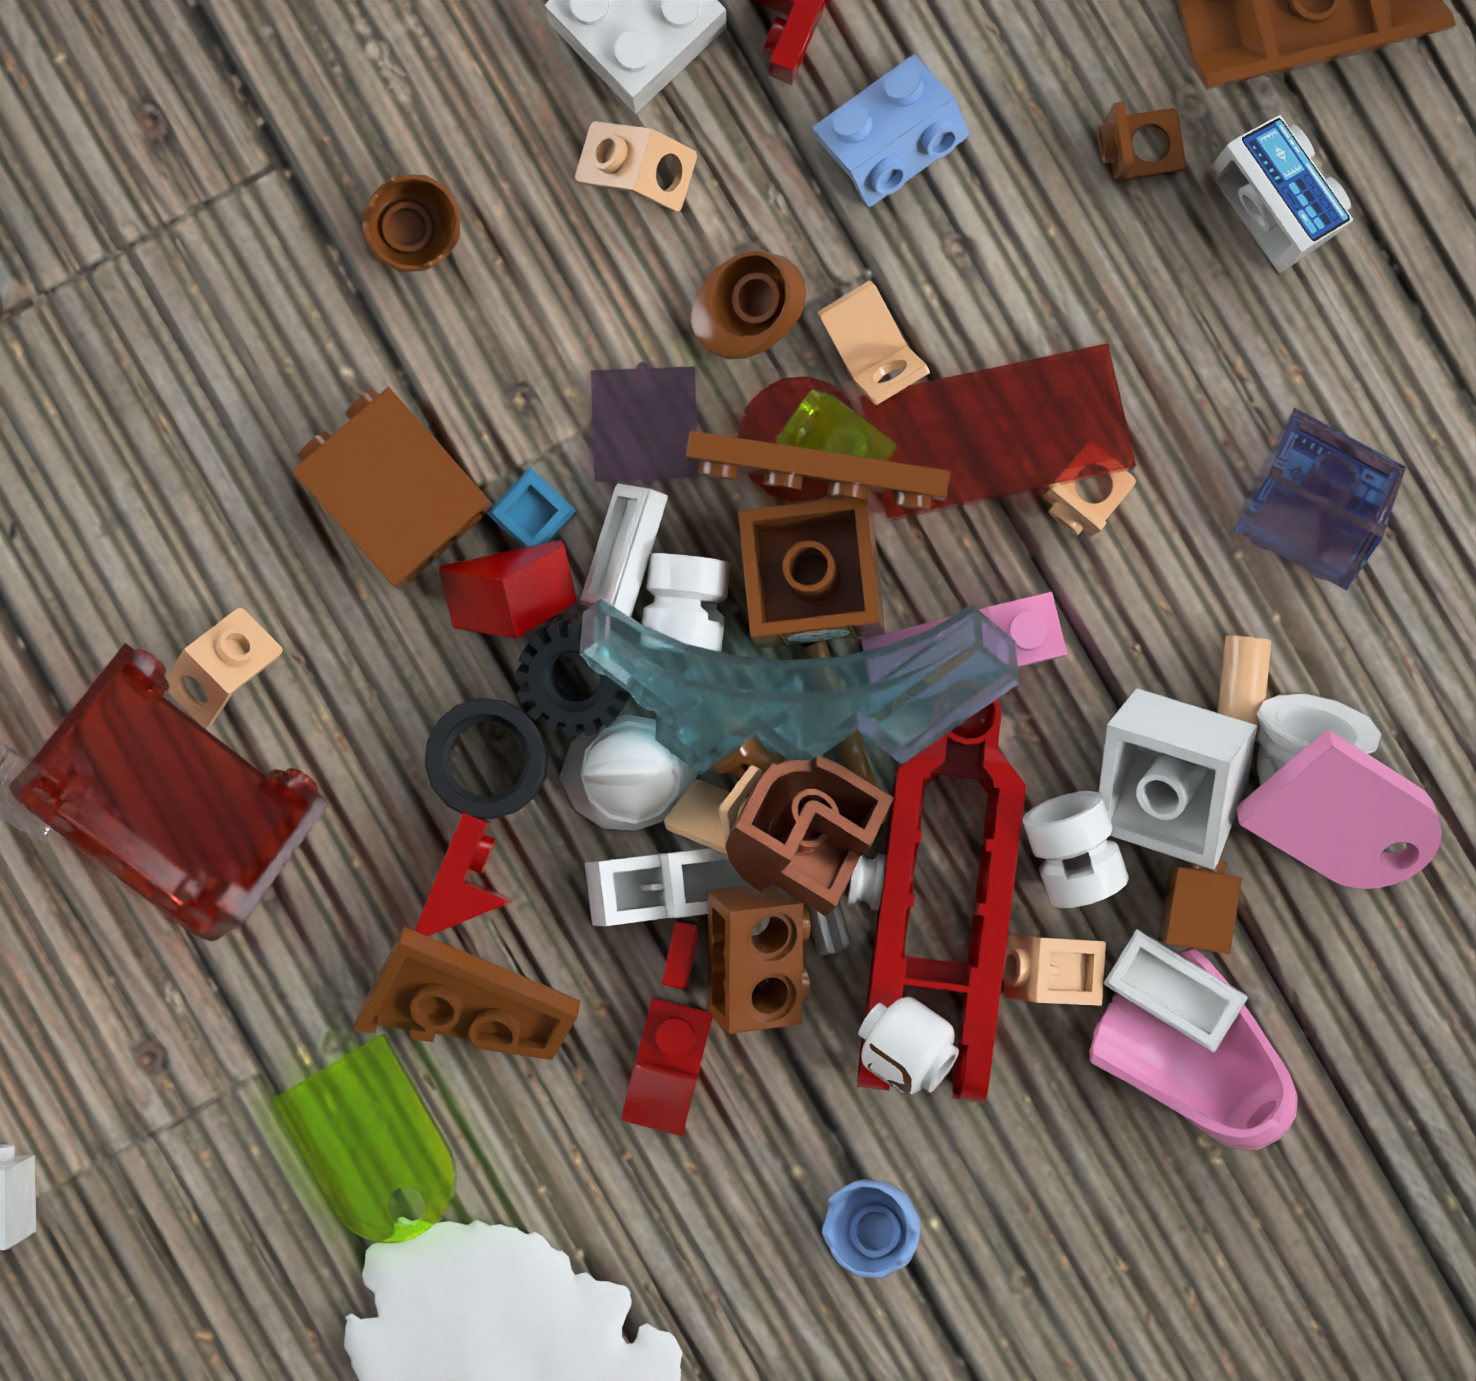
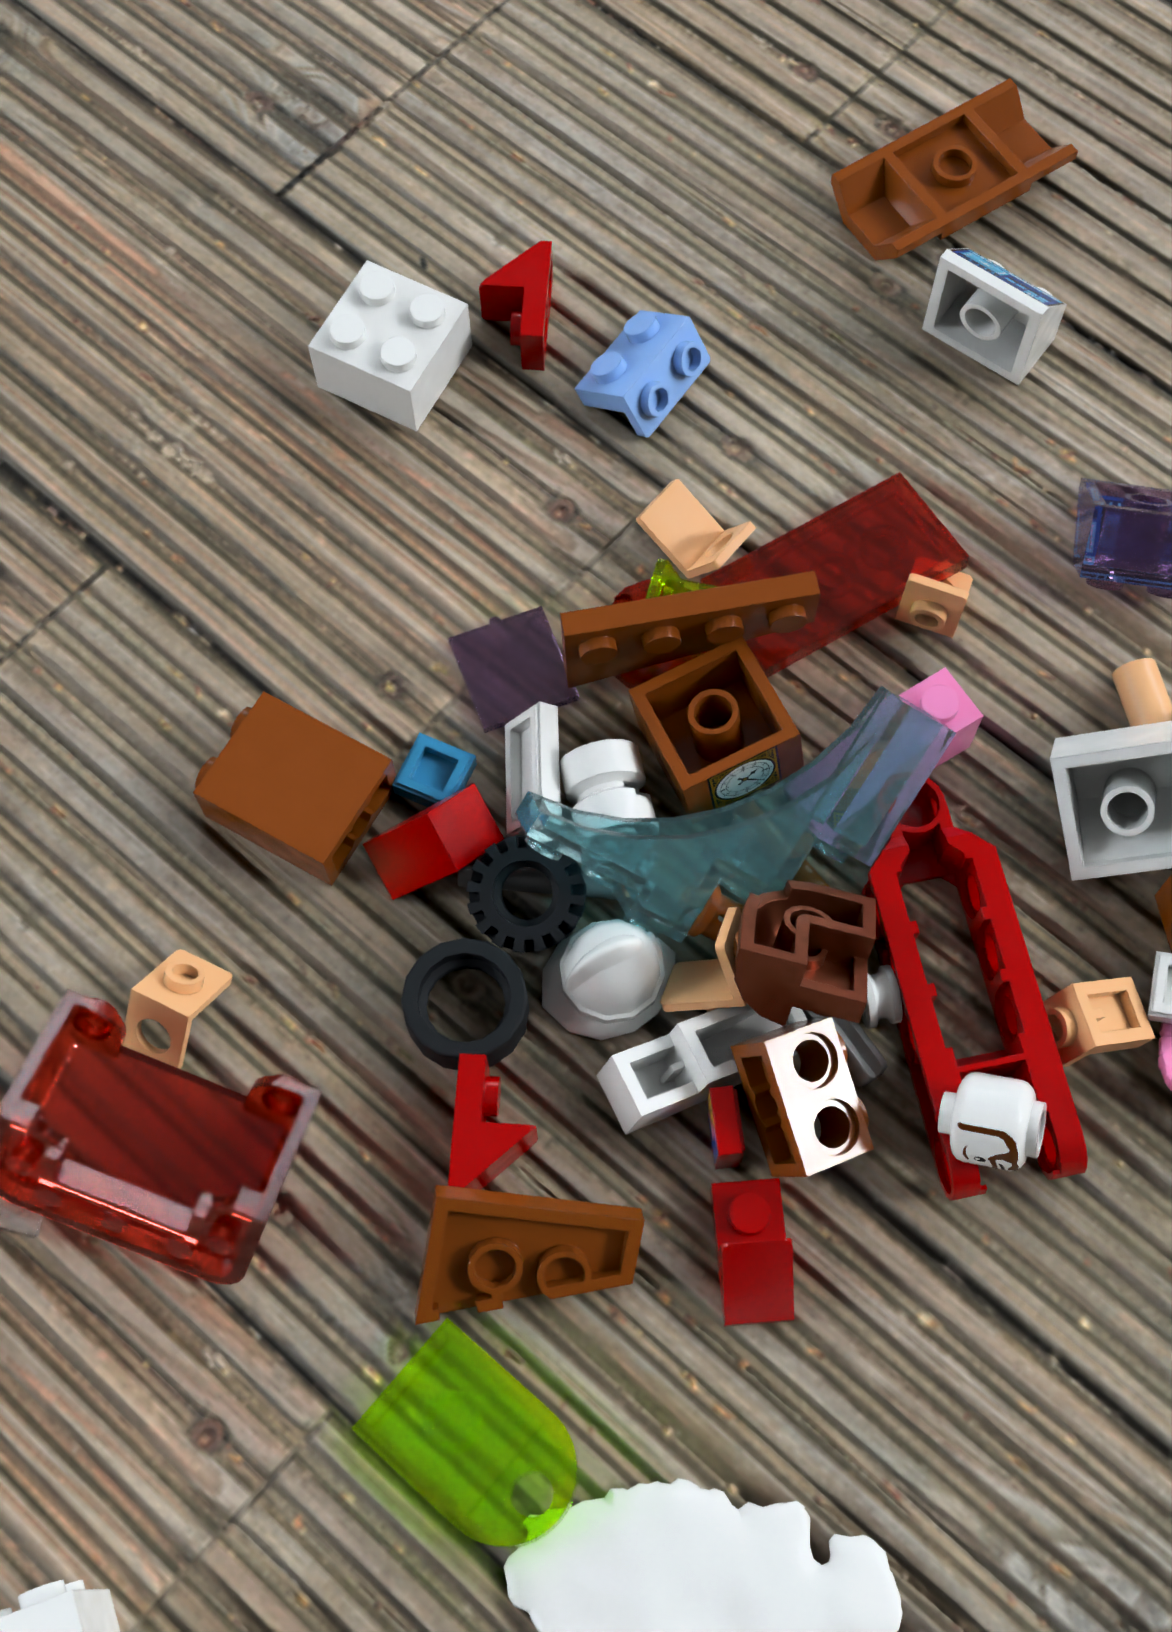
camera: 20 degrees left, 20 degrees down
(411, 223) = (244, 558): dark orange hair -> none
(628, 160) = (427, 452): light nougat bracket -> none
(748, 304) = (570, 535): dark orange hat -> none
(871, 1228) = (1028, 1340): light blue hair -> none
(1078, 858) = (1055, 873): white wheel -> none
(1117, 148) = (843, 317): dark orange bracket -> none

